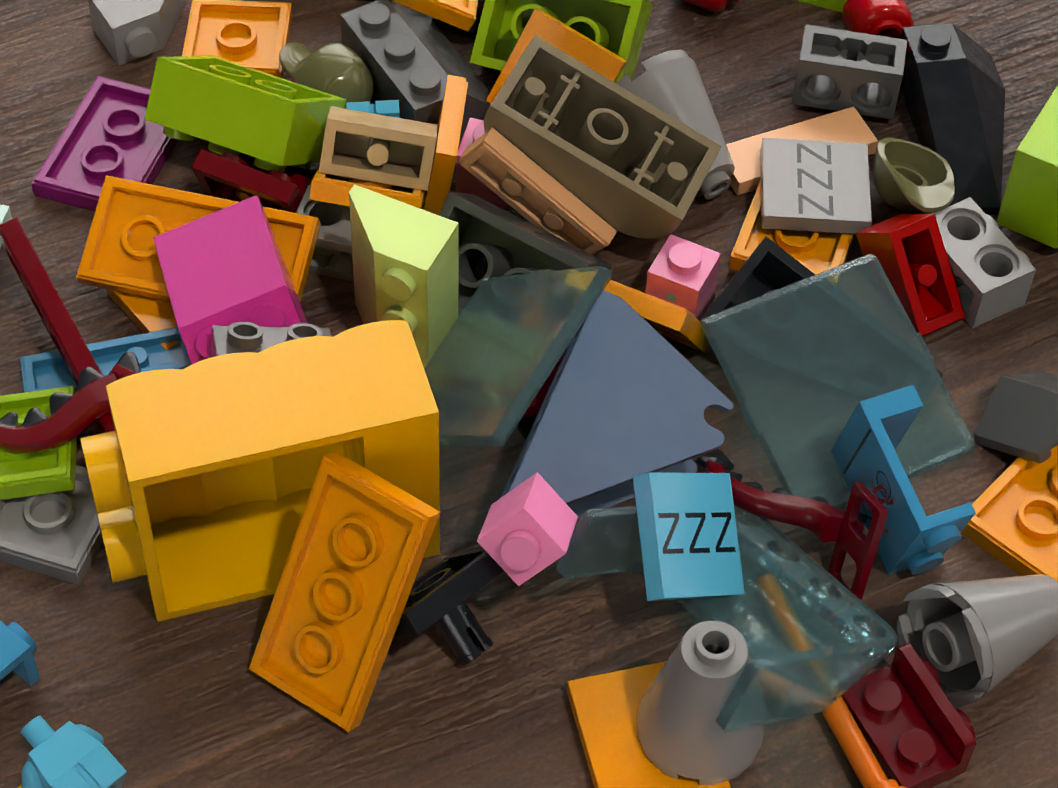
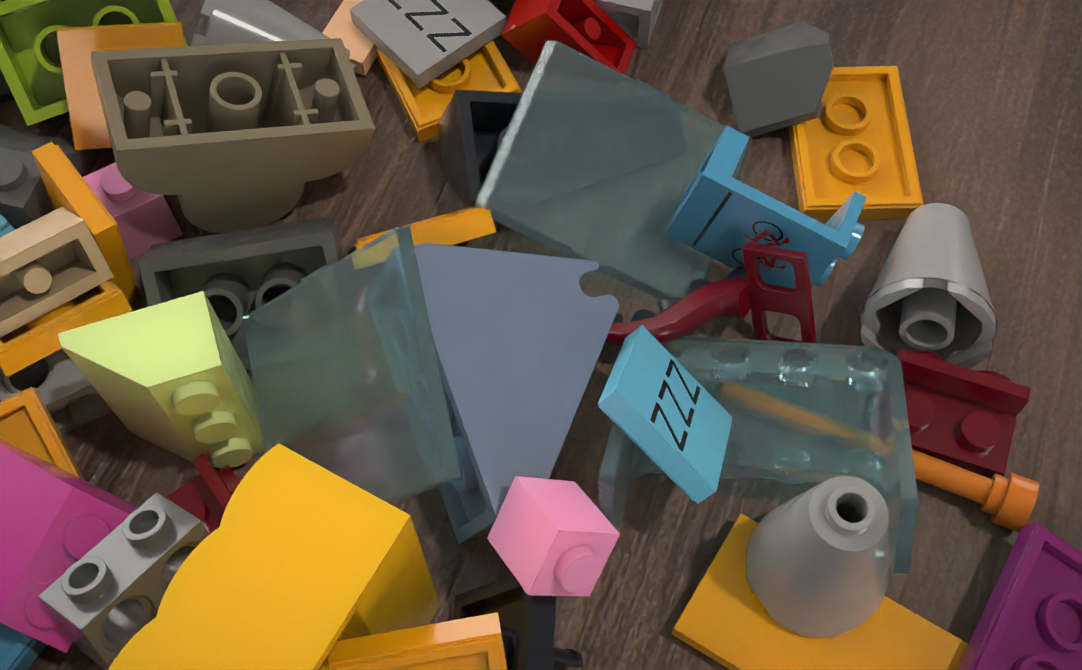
camera: 40 degrees left, 10 degrees up
(535, 193) = (210, 202): light nougat tile -> none
(684, 275) = (407, 181): bright pink brick -> none

